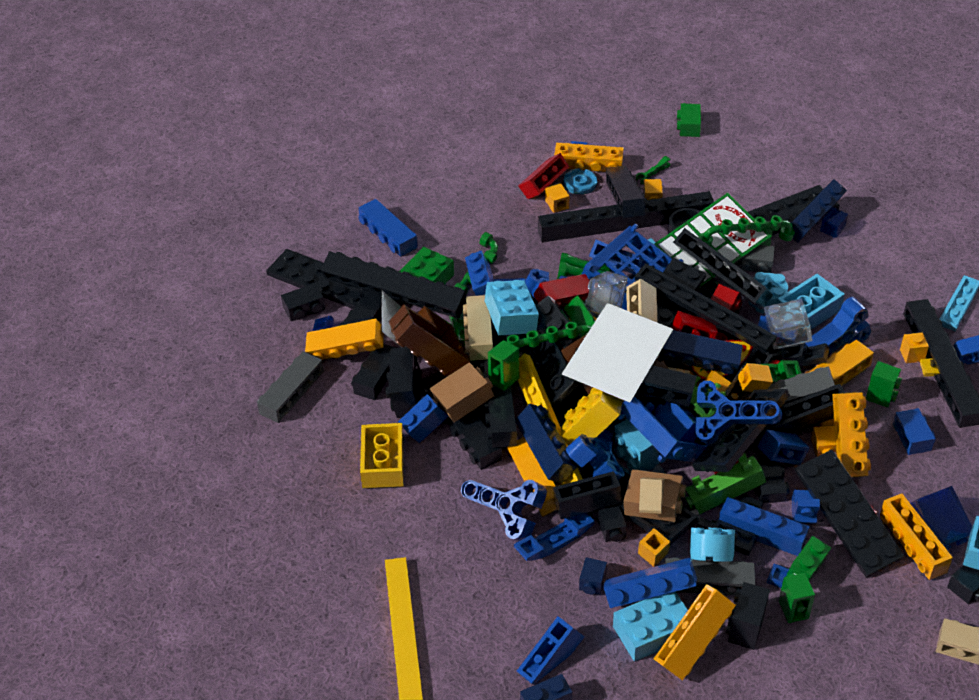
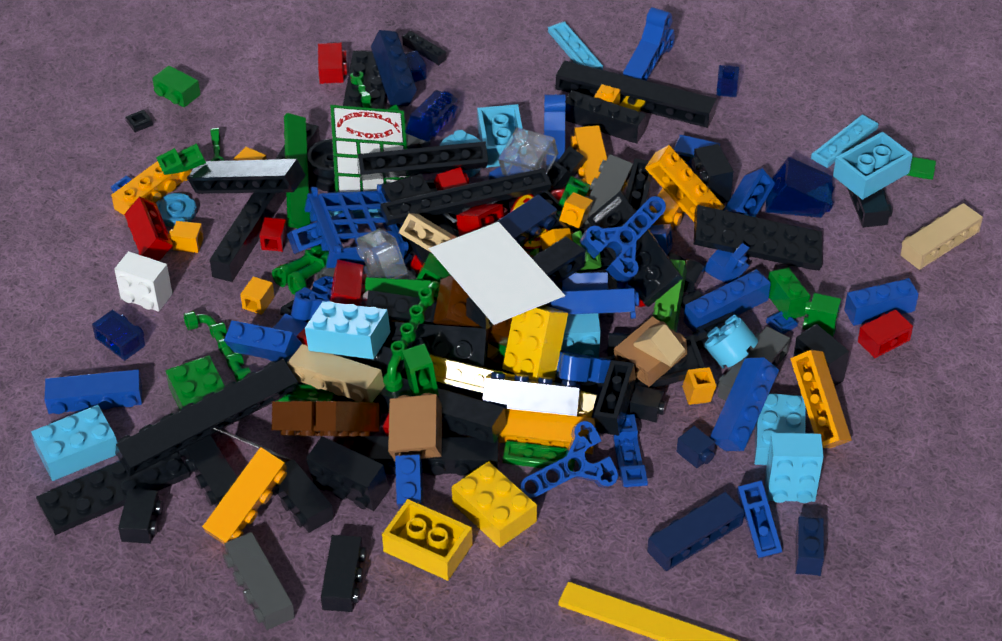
camera: 60 degrees left, 0 degrees up
(323, 323) = (190, 514): clear blue tile -> none
(325, 425) = (343, 573): none -> black brick
(338, 236) = (74, 442): none -> medium azure brick
(442, 478) = (494, 504): none -> yellow brick
(444, 213) = (118, 334): none -> clear blue brick
(492, 197) = (143, 281): none -> white brick
(506, 613) = (695, 531): none -> dark blue brick
(509, 476) = (534, 455): none -> green tile
(535, 258) = (257, 295): none -> light orange brick
(597, 232) = (273, 234): none -> red brick
(605, 645) = (793, 467): none -> medium azure brick
(609, 153) = (187, 159): none -> green slope
(644, 122) = (139, 121): none -> black tile
(667, 206) = (296, 148): none -> green tile
(727, 226) = (397, 98): green bar -> none
(778, 206) = (365, 96): none -> green piece
(784, 253) = (432, 115): none -> clear blue brick
(792, 179) = (331, 63): none -> red brick
(826, 654) = (885, 333): none -> red brick
(860, 635) = (874, 301): none -> blue brick
(864, 211) = (424, 48): none -> black piece
(883, 384) = (637, 139): green brick -> none
(885, 487) = (751, 193): none -> blue brick
(892, 449) = (714, 170): none -> black brick
(895, 351) = (610, 117): none -> black brick
(915, 536) = (810, 212): light orange brick -> none

